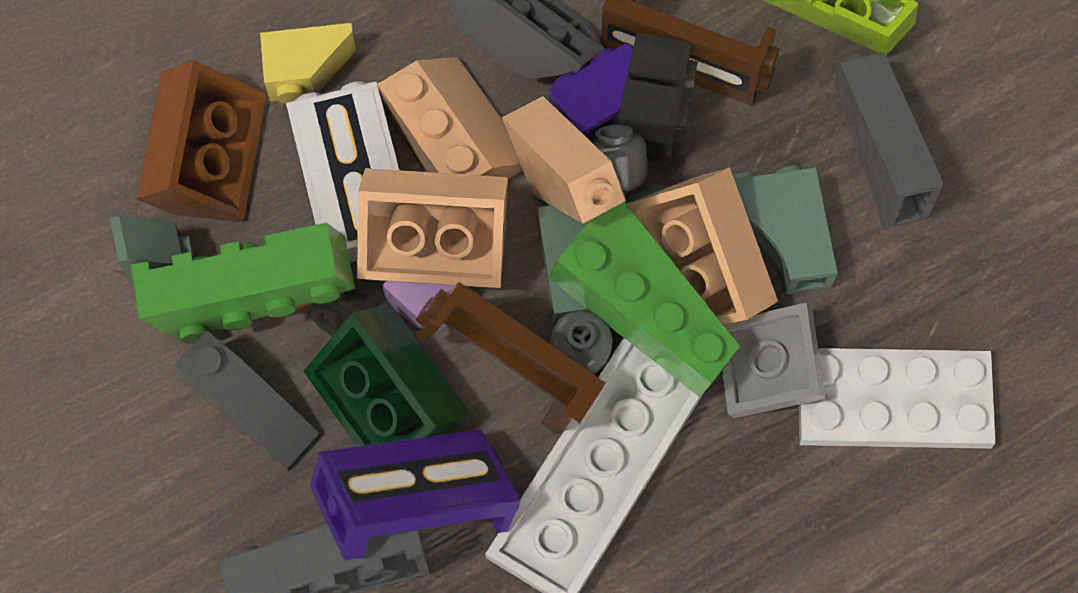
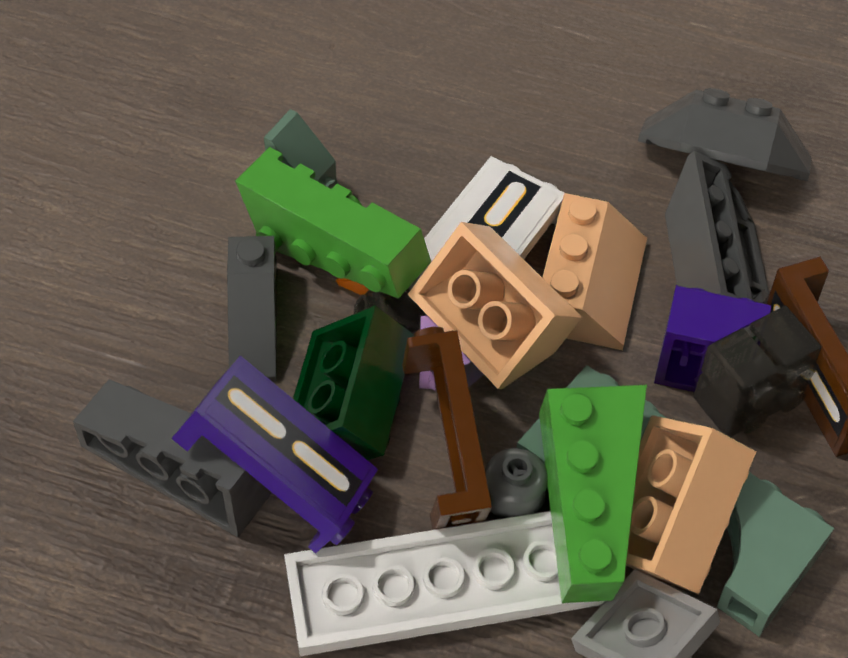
camera: 45 degrees right, 15 degrees down
(201, 144) = (412, 141): dark orange slope -> none
(304, 59) = (540, 147): light yellow slope -> none
(562, 162) = (630, 333): light nougat slope -> none
(627, 154) = (677, 381): dark grey head -> none

